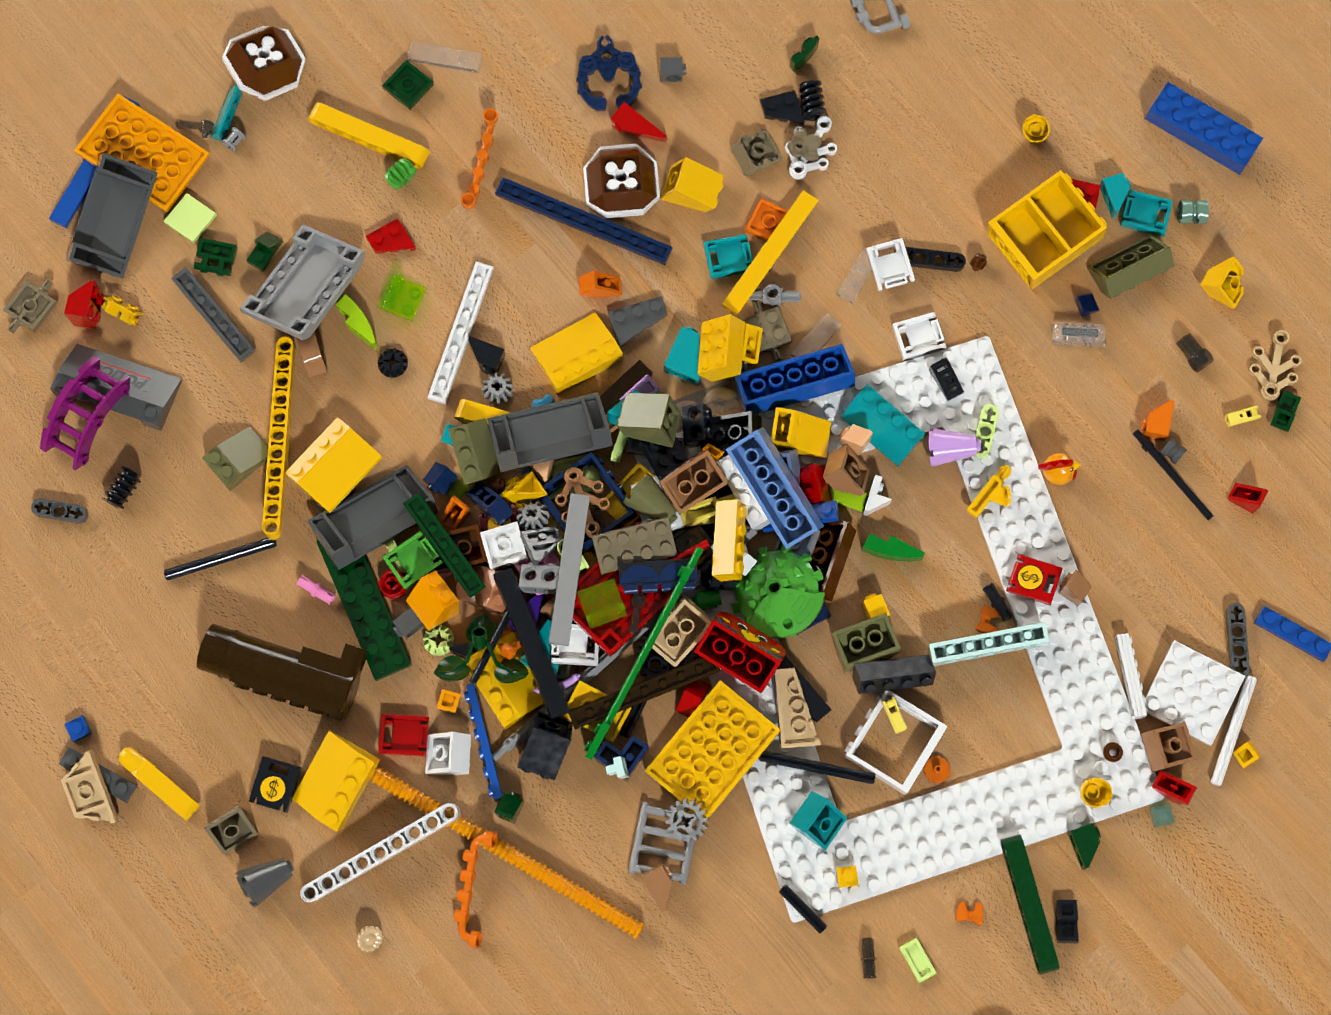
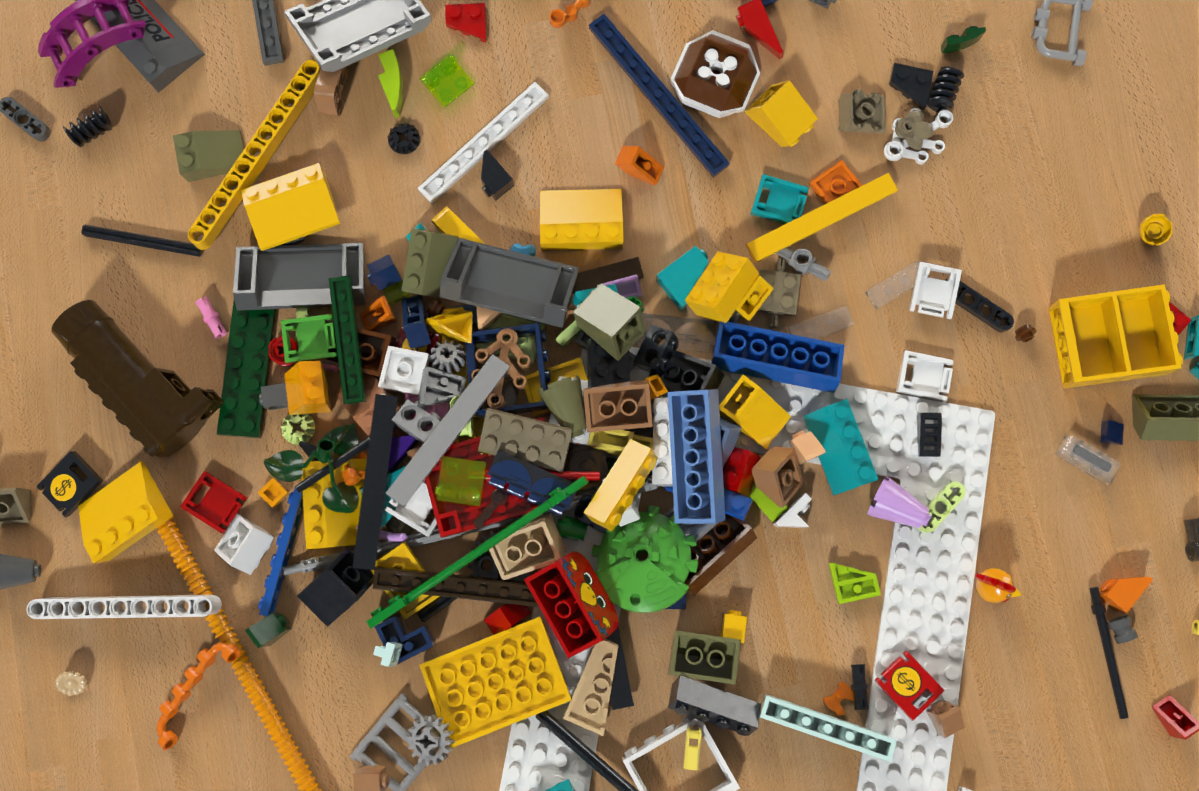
camera: 30 degrees right, 5 degrees up
(491, 393) = (489, 220): light grey gear -> none
(634, 319) = (656, 214): dark grey wing -> none
(891, 550) = (781, 575): green slope -> none
(950, 526) = (852, 583): none -> lime wing
(992, 492) = (915, 573): yellow piece -> none

